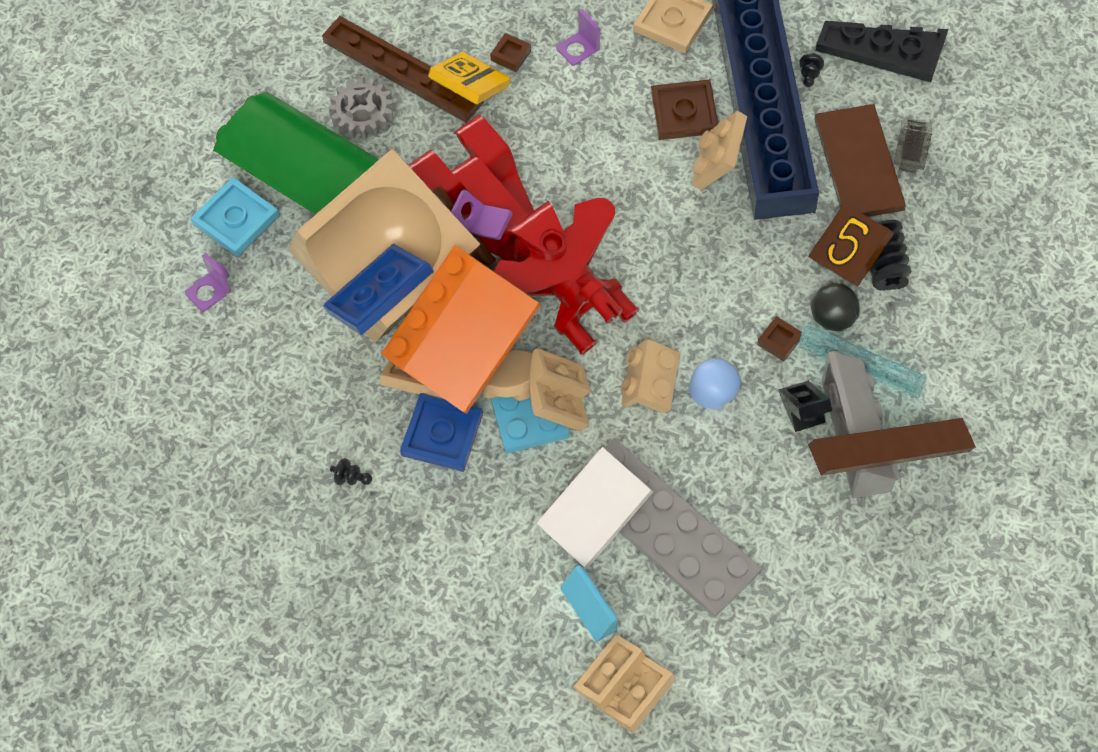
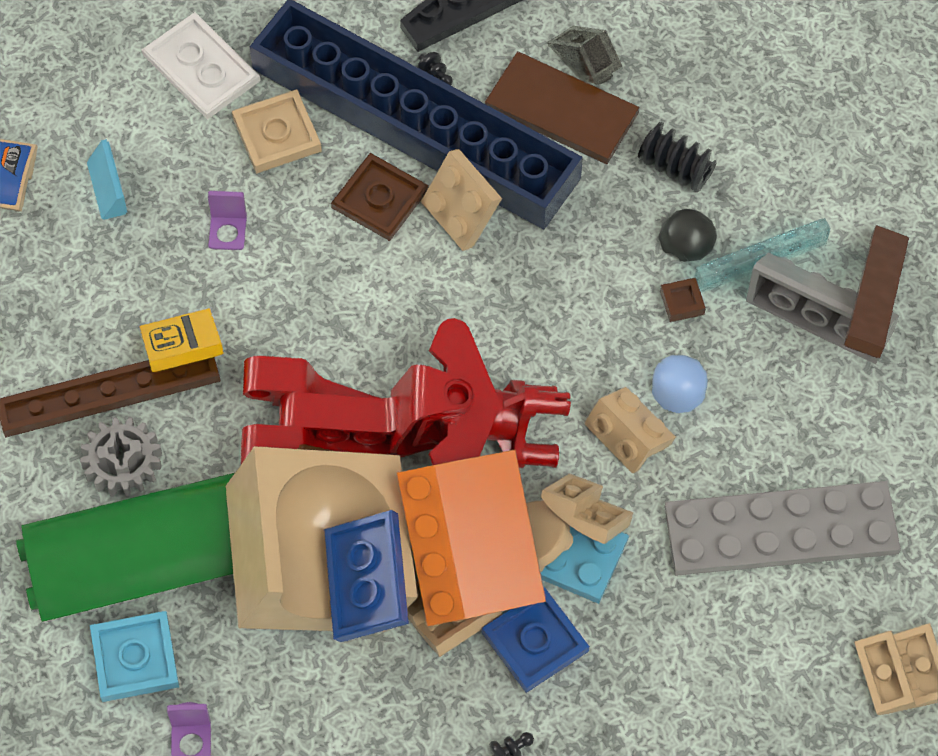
camera: 55 degrees left, 0 degrees up
(484, 219) = (367, 434): medium lavender bracket -> none
(510, 52) = (182, 287): reddish brown plate -> none
(589, 604) = (810, 641): medium azure slope -> none
(594, 507) = (725, 566): white tile -> none
(805, 405) = (764, 328): black slope -> none
(851, 245) = (648, 175): reddish brown tile -> none

